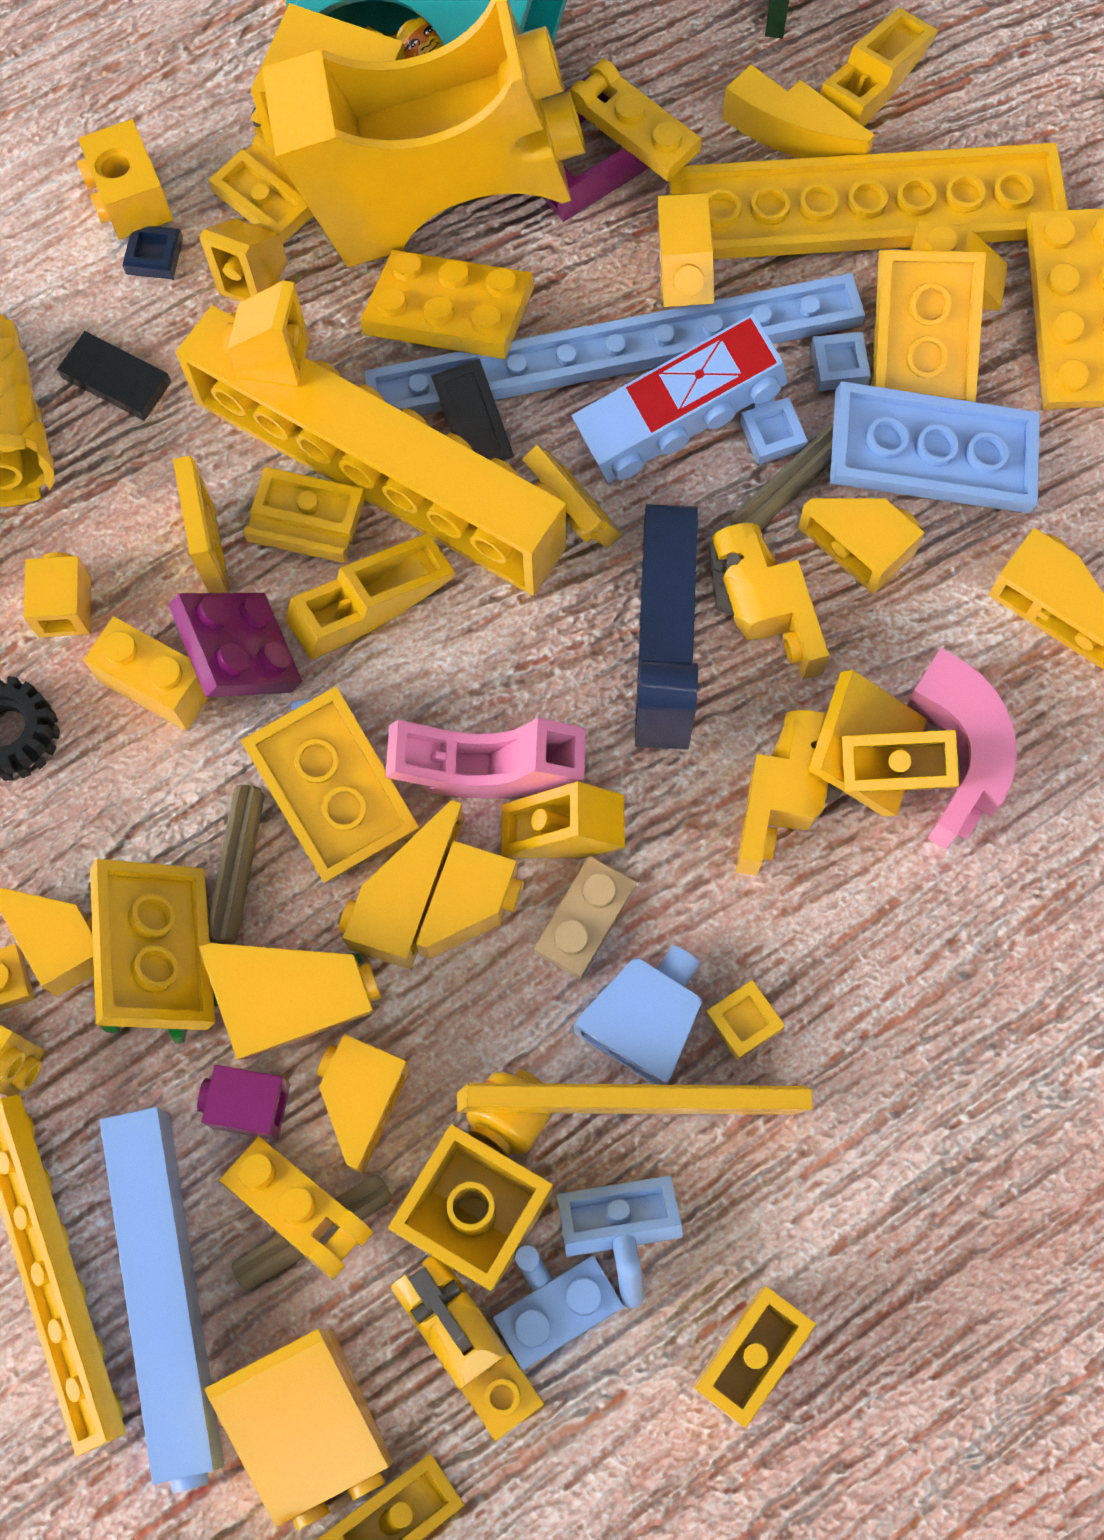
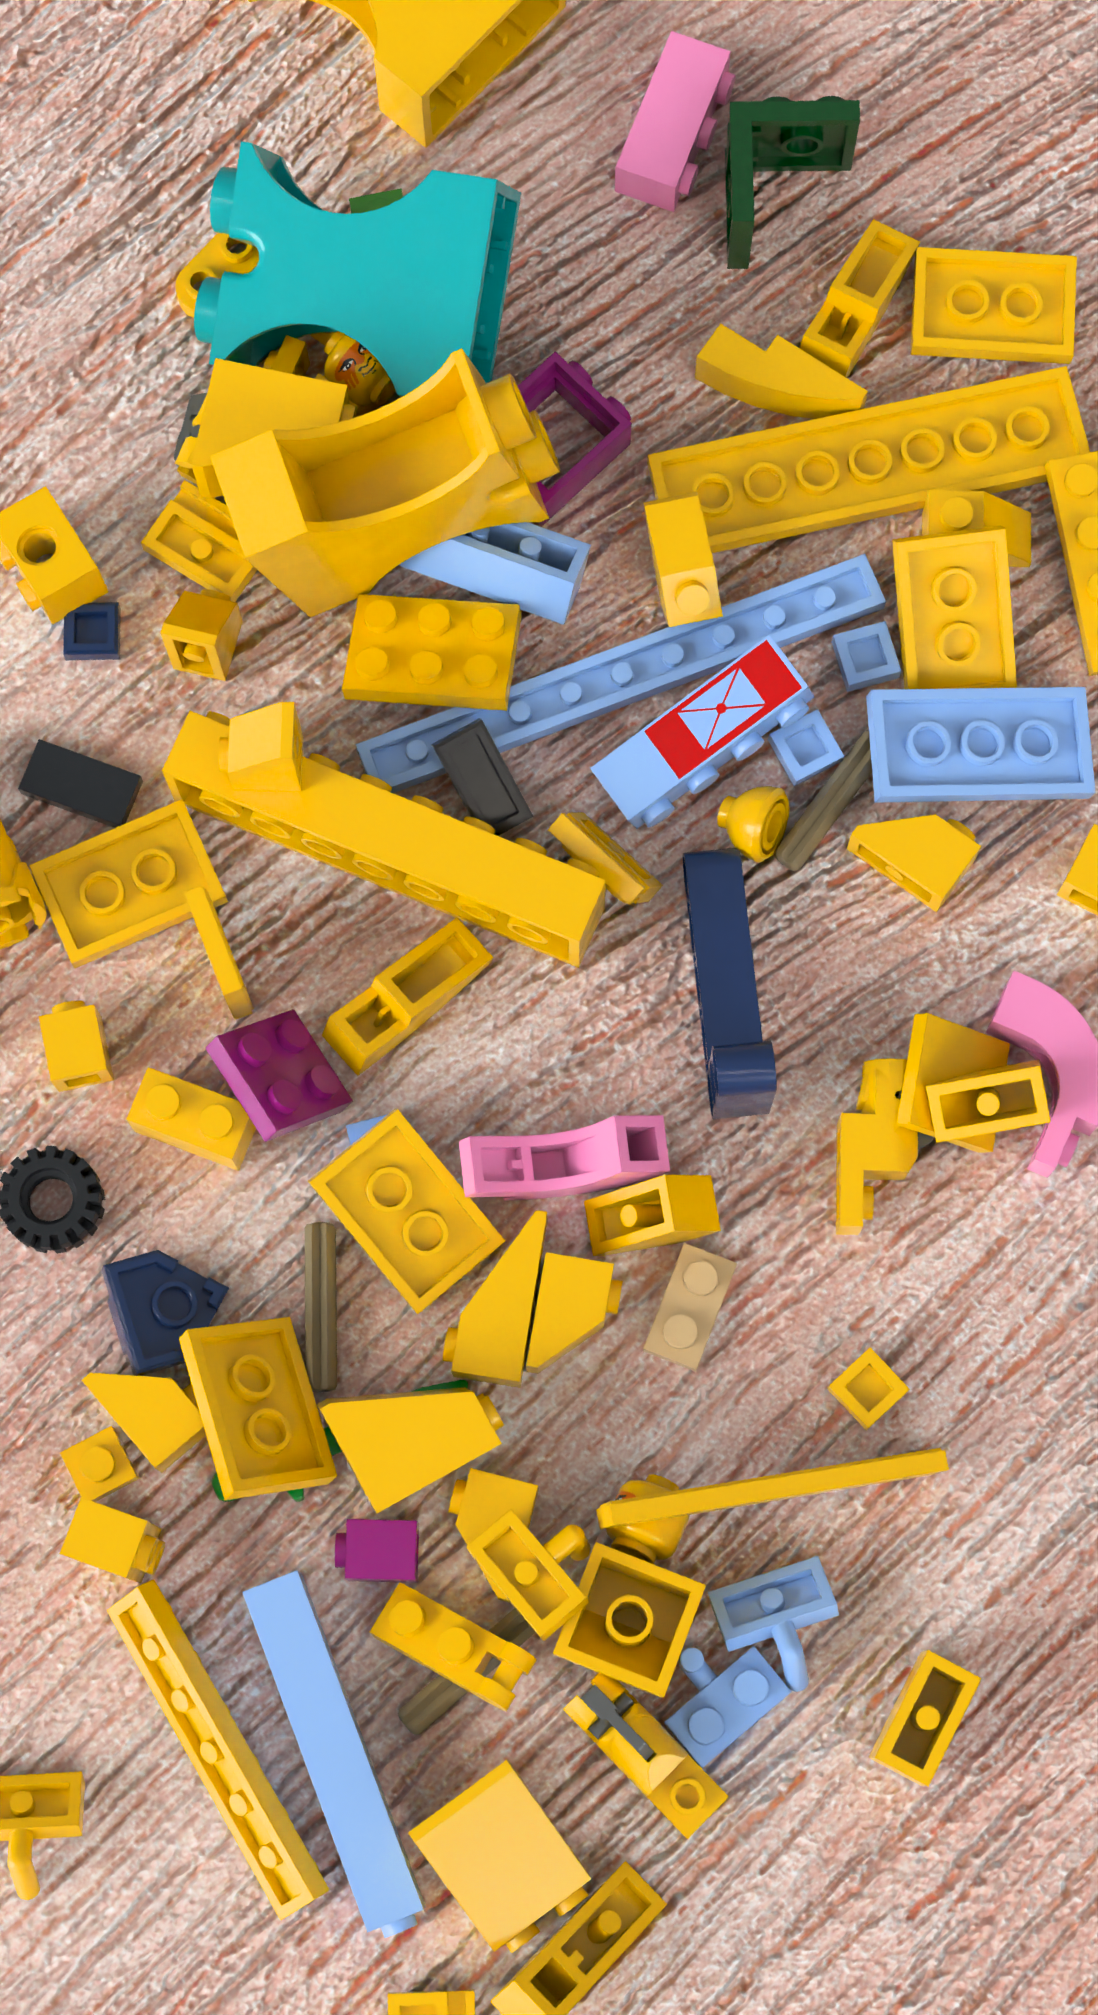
camera: 10 degrees left, 5 degrees up
(76, 831) = (155, 1304): none -> dark blue plate
(126, 461) = (126, 883): none -> yellow plate
(304, 514) = (321, 916): yellow plate -> none
(380, 1142) = (531, 1572): none -> yellow plate
(526, 236) = (511, 566): none -> light blue brick
(635, 121) = (604, 415): yellow plate -> none
(645, 1015) = (769, 1400): light blue torso -> none
(717, 486) = (755, 821): none -> yellow brick
(766, 596) = (824, 937): yellow plate -> none
(997, 88) = (993, 305): none -> yellow plate

